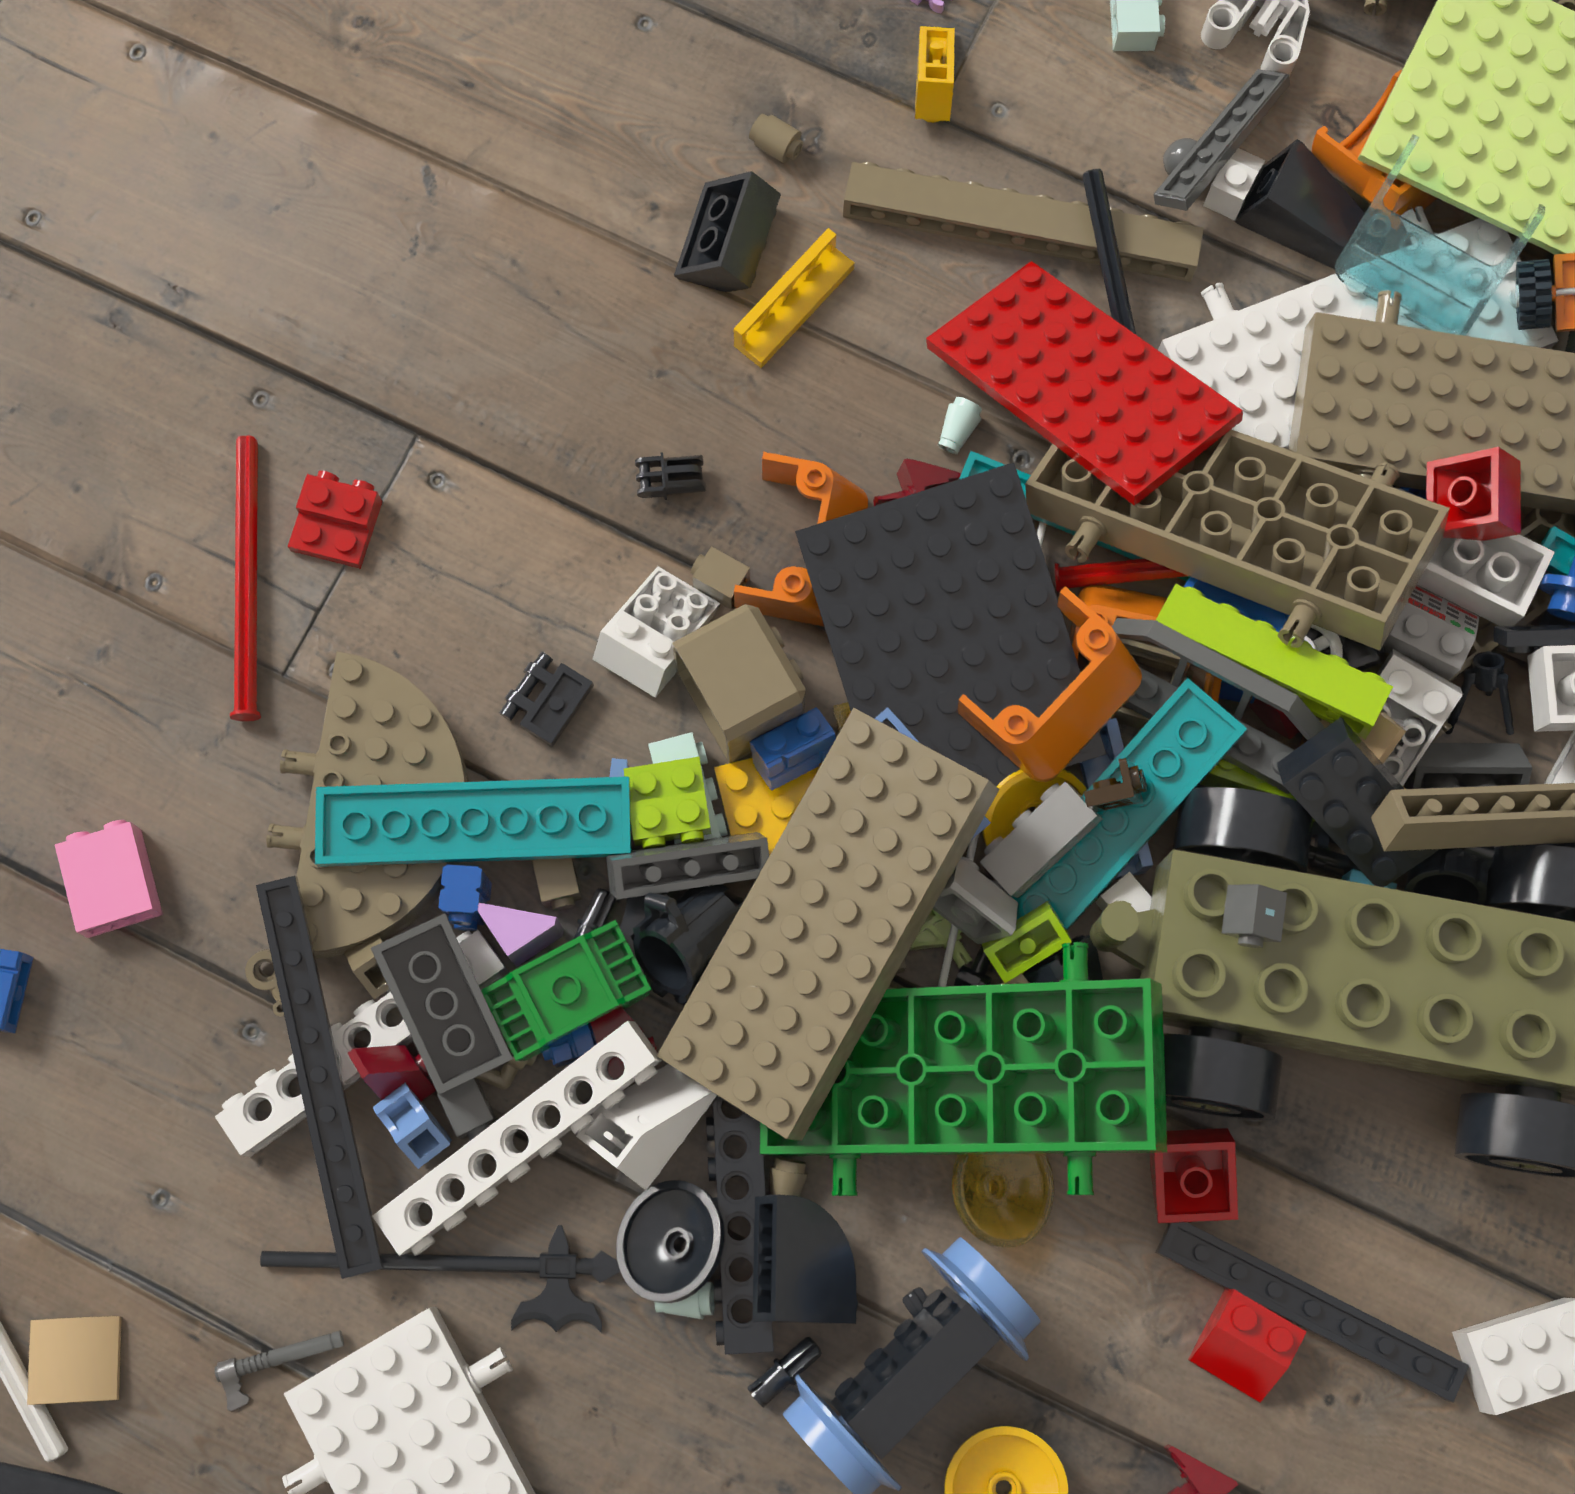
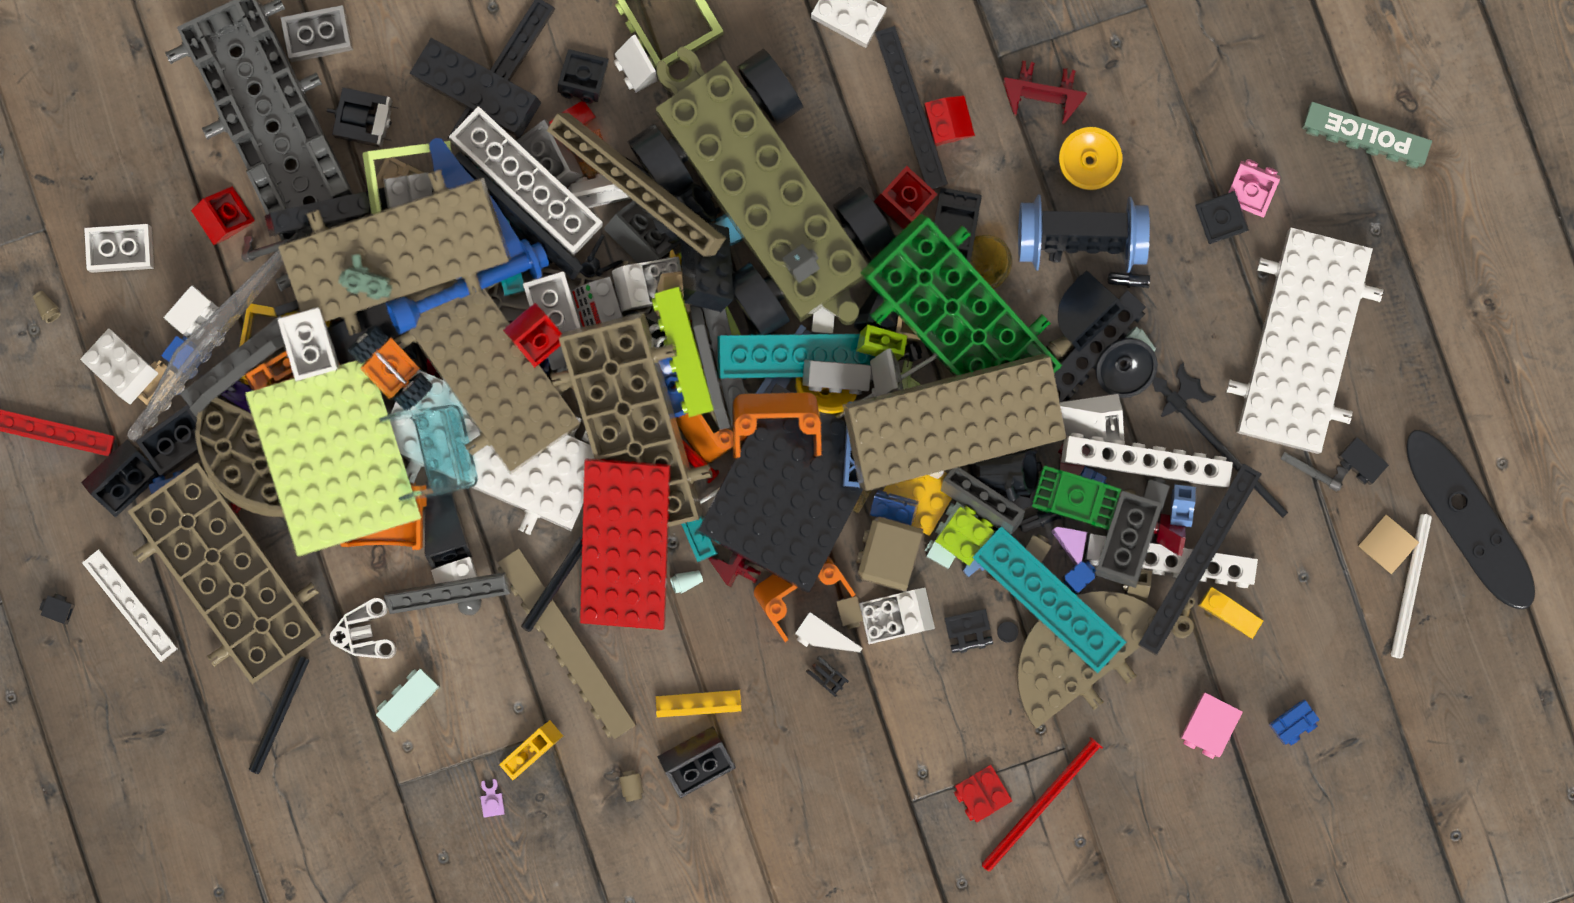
camera: 135 degrees left, 10 degrees up
(215, 1442) = (1362, 461): none -> black brick
(219, 1050) = (1230, 612): none -> yellow slope
(495, 747) = (1007, 632): none -> black piece
(722, 513) = (819, 634): none -> white slope
(1099, 1228) = (958, 209): none -> black slope
(1113, 794) = (794, 361): dark brown bracket -> none

